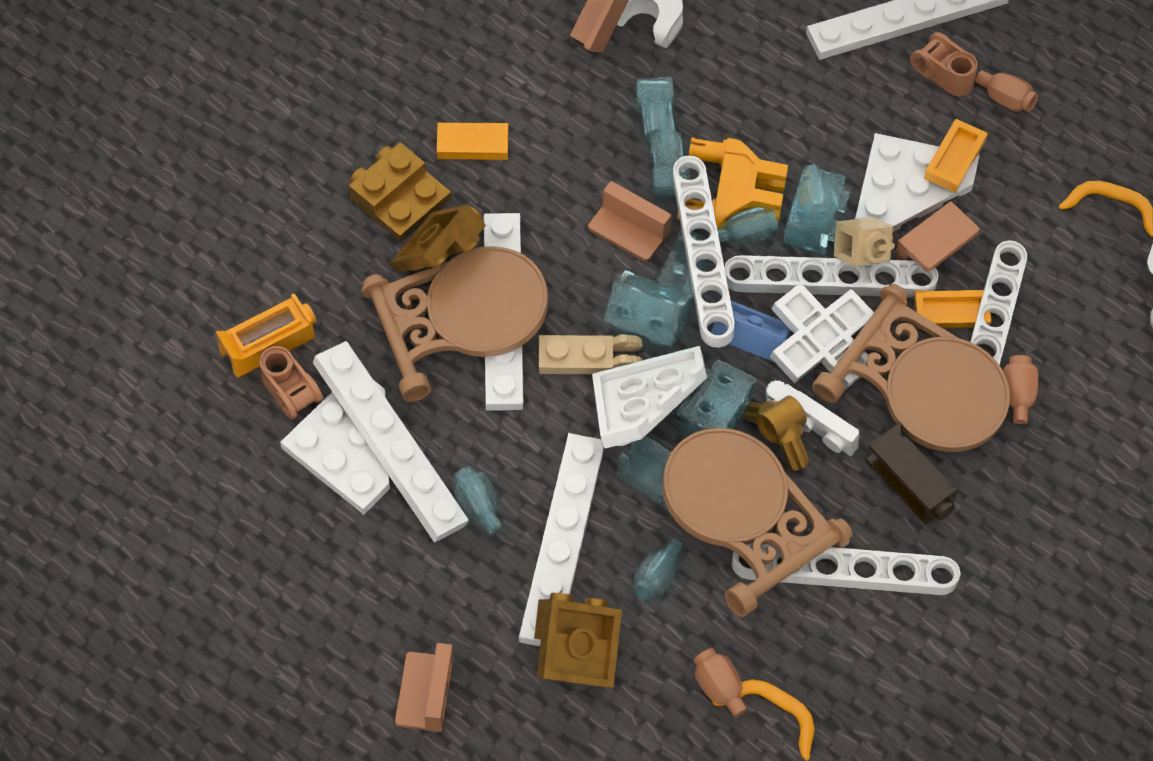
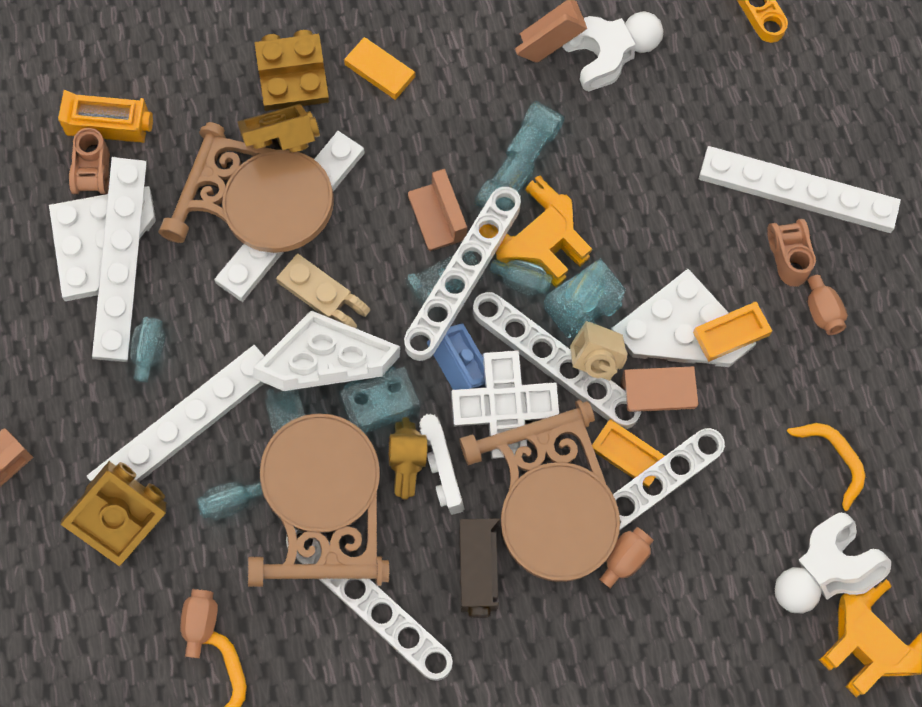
camera: 35 degrees right, 10 degrees up
(647, 308) = (388, 288): clear light blue brick -> none

